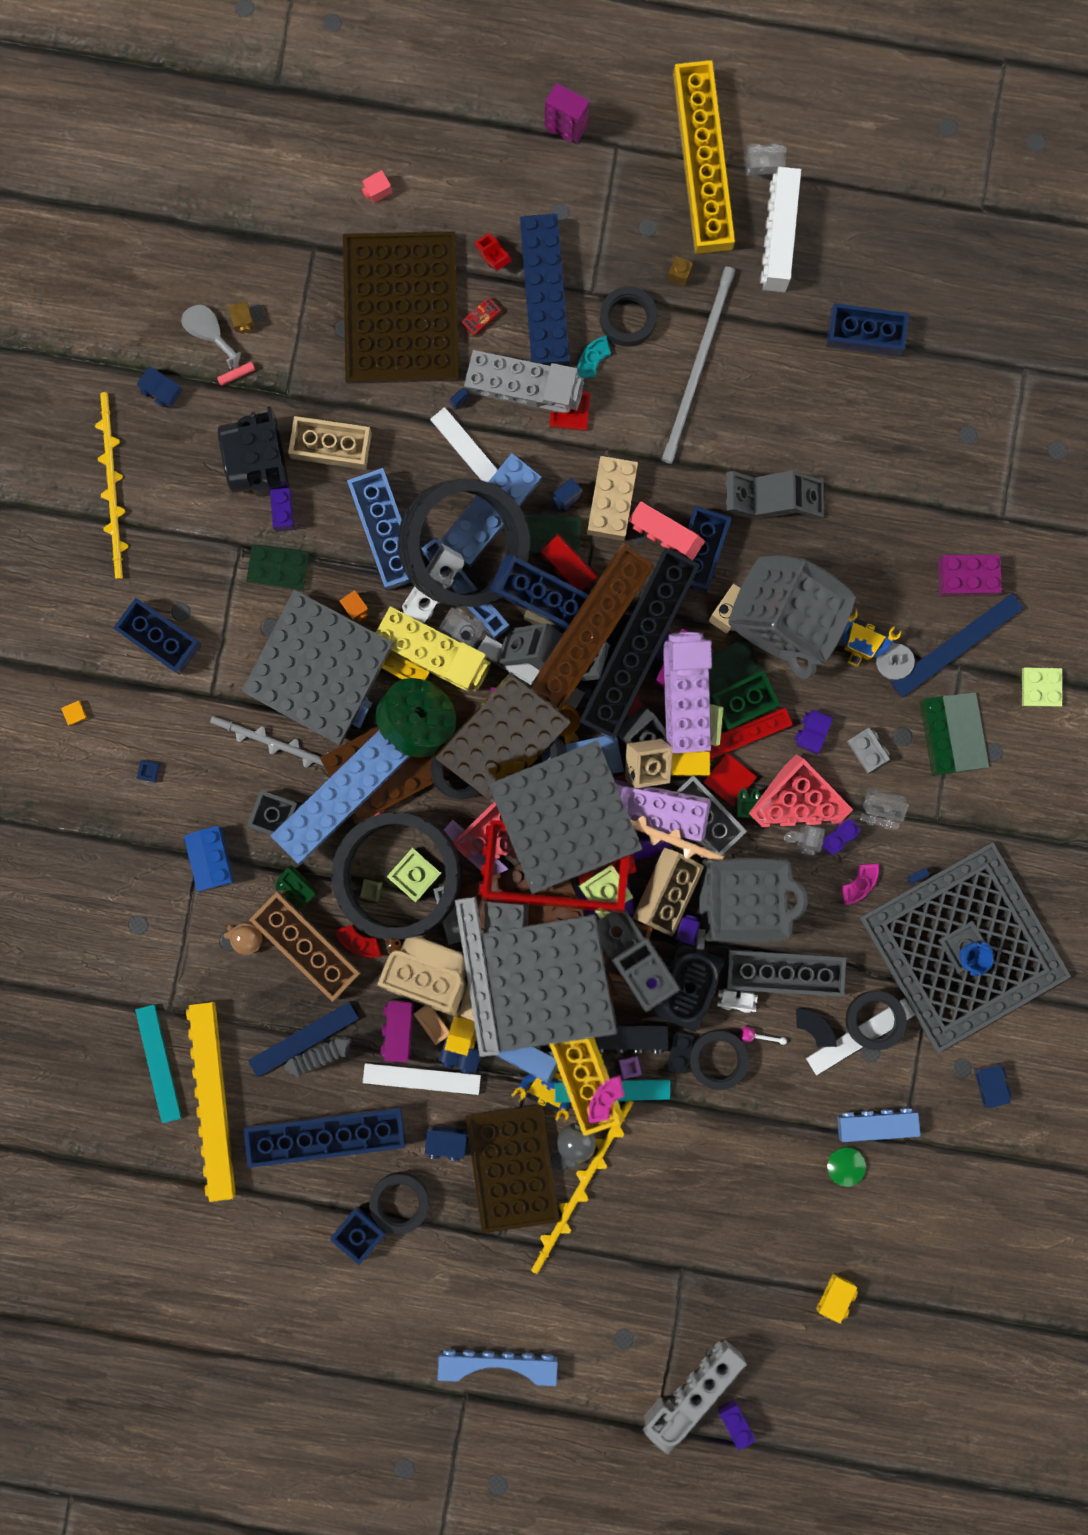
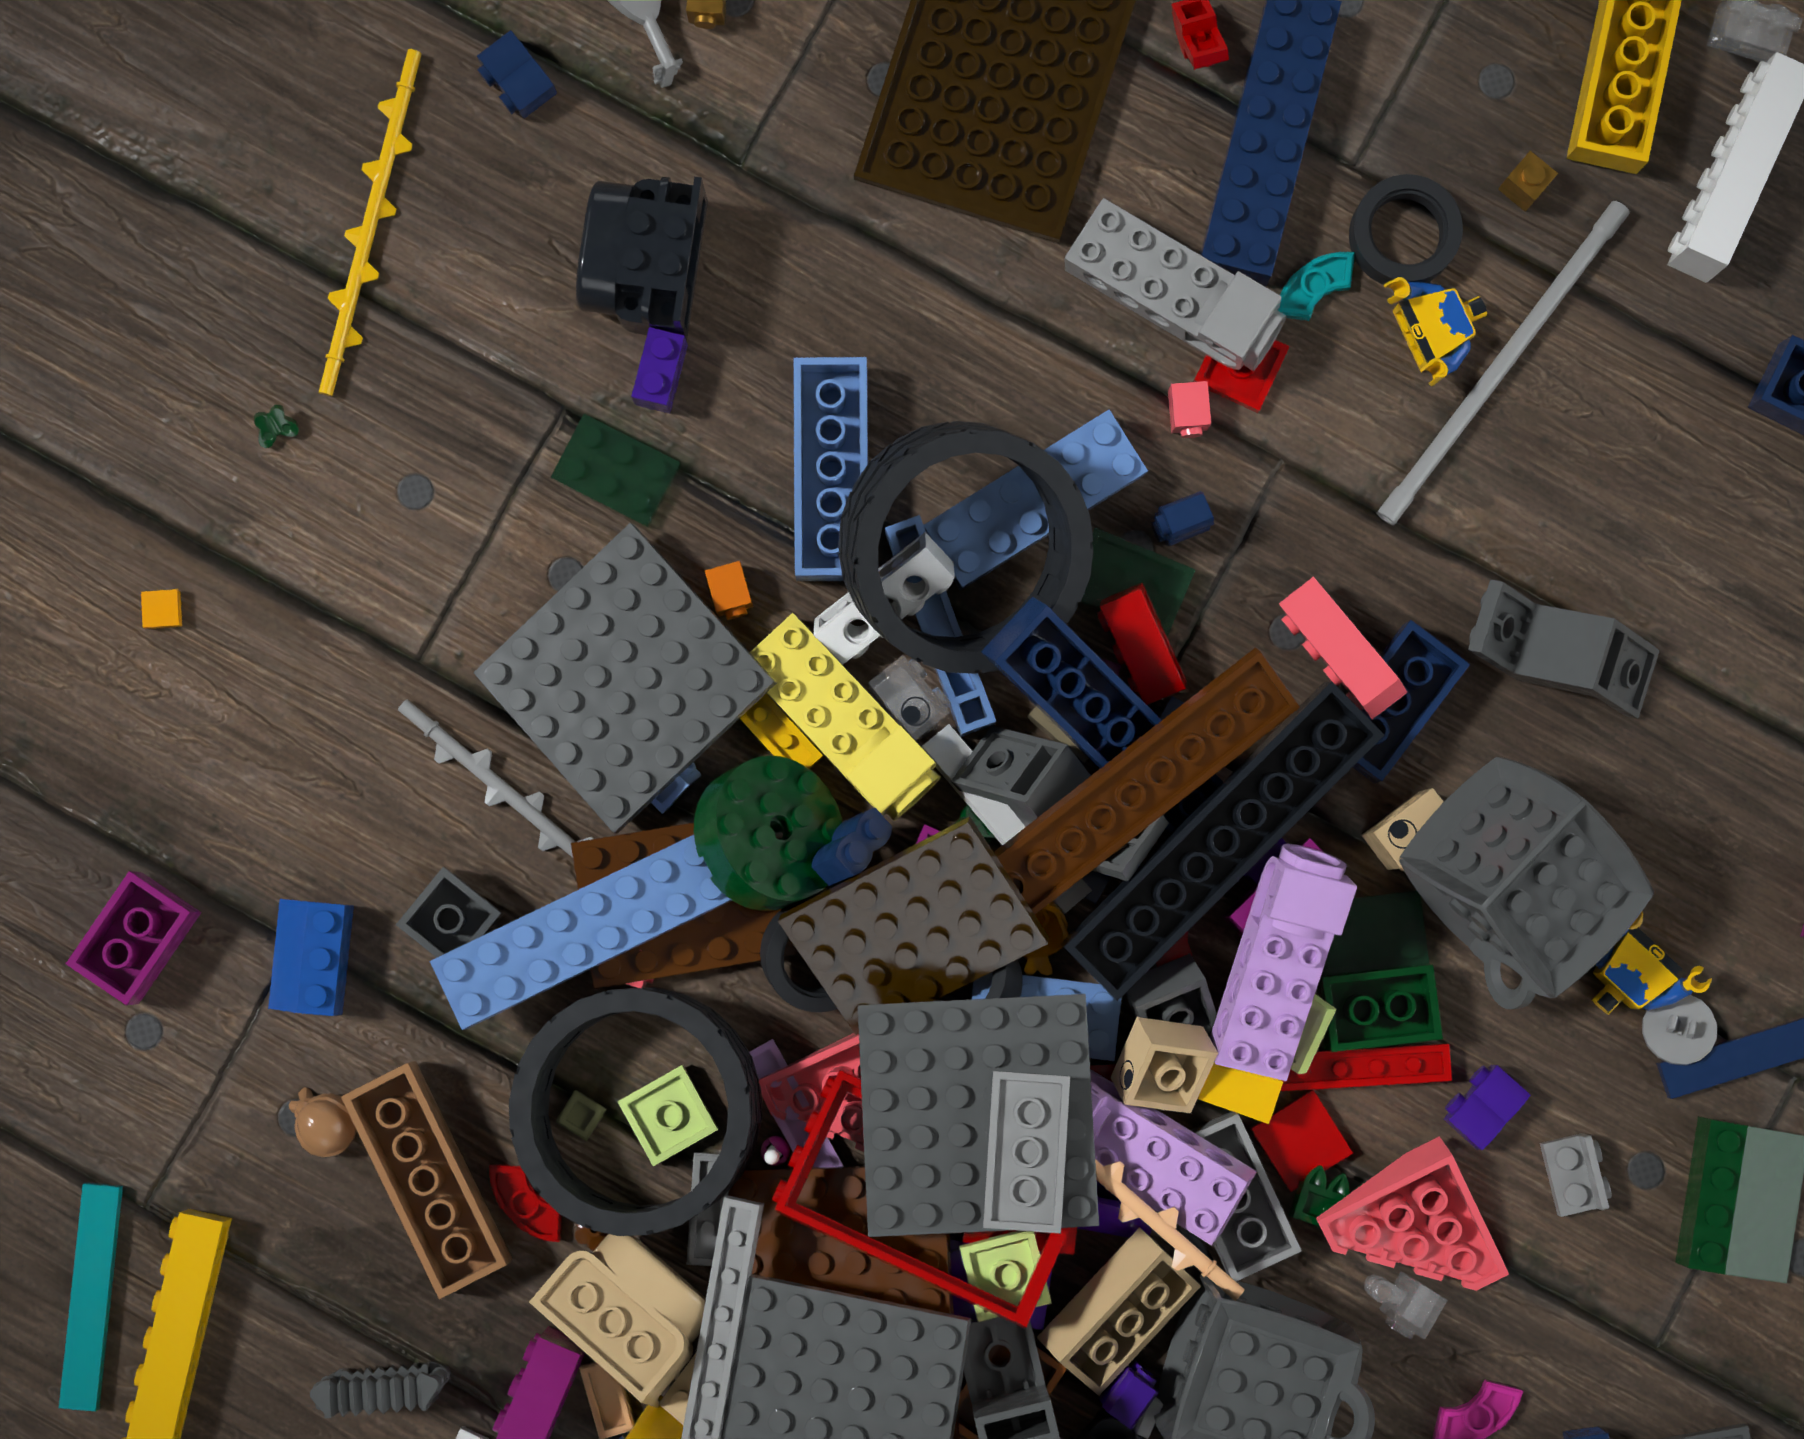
camera: 25 degrees right, 0 degrees up
(98, 602) = (274, 424): none -> dark green piece
(118, 879) = (133, 938): none -> magenta brick
(148, 771) = (257, 759): dark blue tile -> none
(157, 636) = (356, 522): dark blue brick -> none
(236, 373) = (662, 96): coral piece -> none
(296, 886) = (448, 1062): dark green plate -> none
(303, 1039) = (365, 1344): dark blue tile -> none
(330, 442) = (787, 278): tan brick -> none
(458, 398) = (1047, 276): dark blue tile -> none
(459, 709) = (852, 846): none -> dark blue brick
(464, 445) = (1028, 365): white tile -> none
(471, 874) = (775, 1151): none -> dark pink hinge
(481, 316) = (1138, 141): tile -> none
(505, 916) = (805, 1256): dark grey brick -> none
(551, 439) = (1189, 408): none -> coral brick
(594, 824) = (1026, 1152): none -> light grey plate
(612, 498) = (1263, 552): tan brick -> none
(658, 357) = (1435, 324): none -> torso
(842, 833) = (1473, 1314): dark purple brick -> none
(885, 805) = (1570, 1289): clear brick -> none

